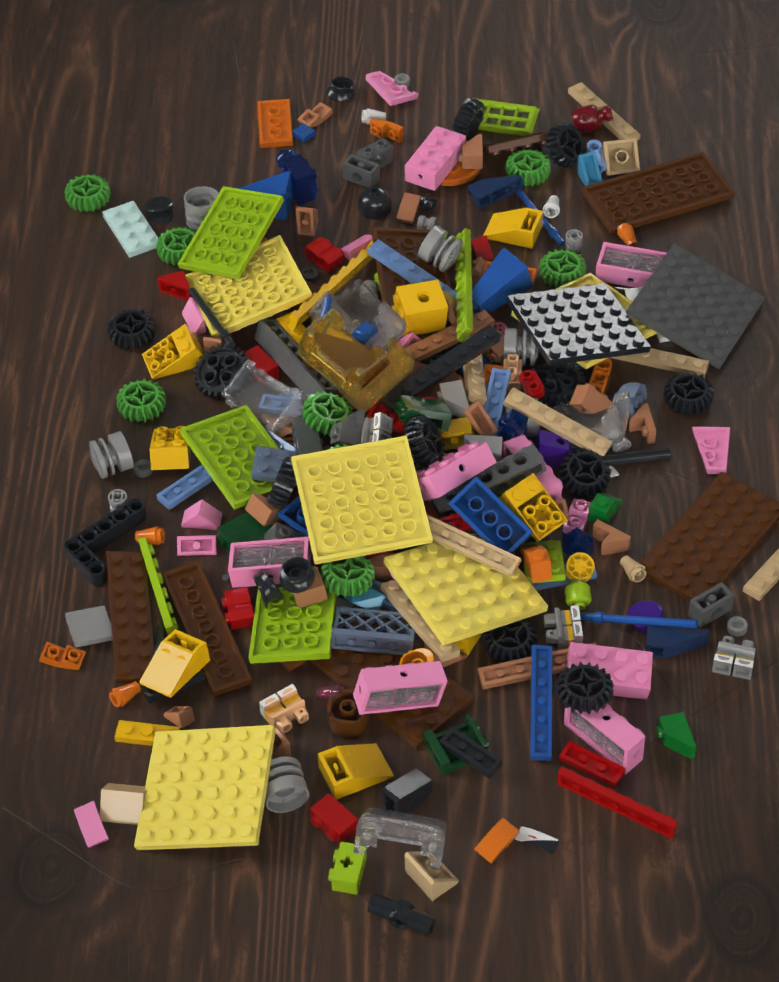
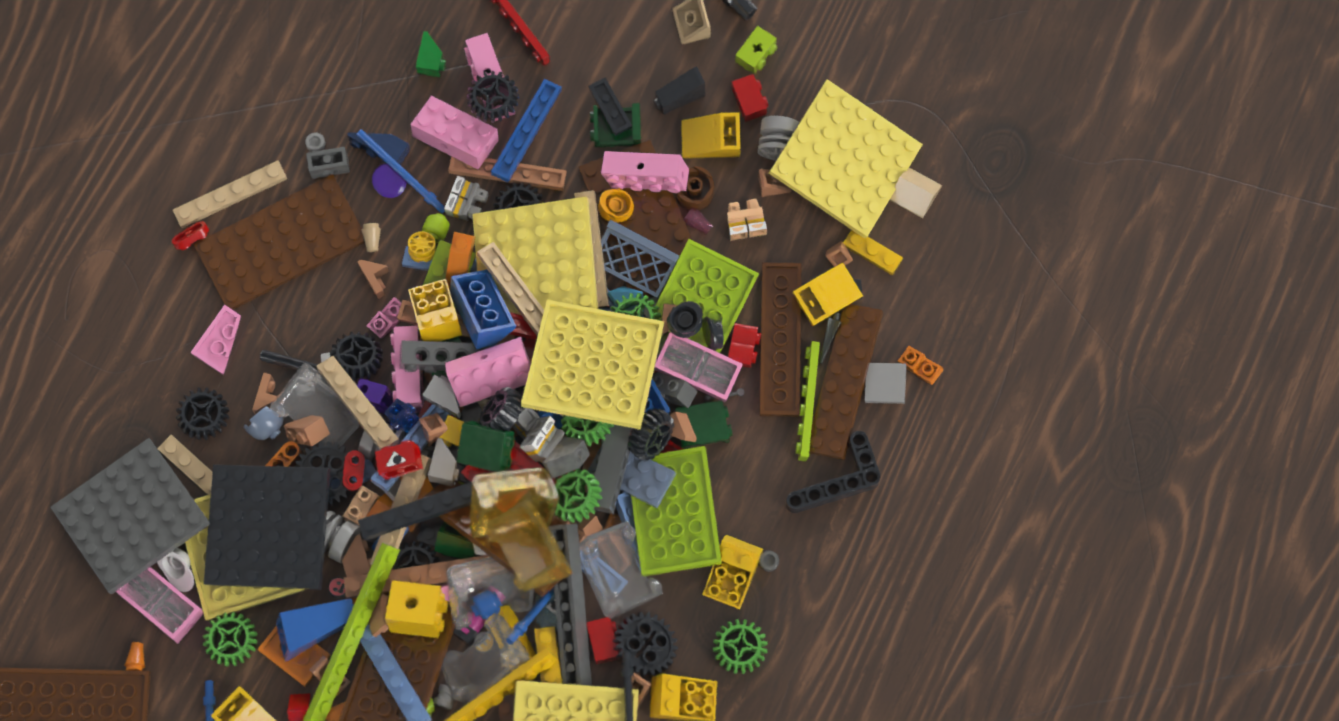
camera: 155 degrees left, 25 degrees up
(91, 824) = (951, 178): bright pink slope -> none
(114, 453) = (797, 574): light grey wheel -> none
(117, 498) = (806, 522): light grey wheel -> none
(122, 695) = (878, 298): orange cone -> none
(153, 535) = (792, 467): orange cone -> none
(184, 487) = (741, 512): medium blue plate -> none
(196, 545) = (752, 442): bright pink slope -> none
(202, 516) = (736, 470): bright pink slope -> none
(403, 828) = (701, 46): clear windscreen -> none
(438, 247) = (353, 688): light grey wheel -> none
(492, 380) = (398, 459): none -> red brick
(496, 840) = (625, 24): orange slope -> none
(537, 839) = (593, 19): sticker -> none
(573, 240) = (196, 674): light grey wheel -> none
(577, 541) = (407, 277): clear blue brick -> none
(592, 764) = (514, 61): red plate -> none
(603, 507) = (357, 314): green slope -> none
(729, 652) = (340, 106): light grey hips -> none

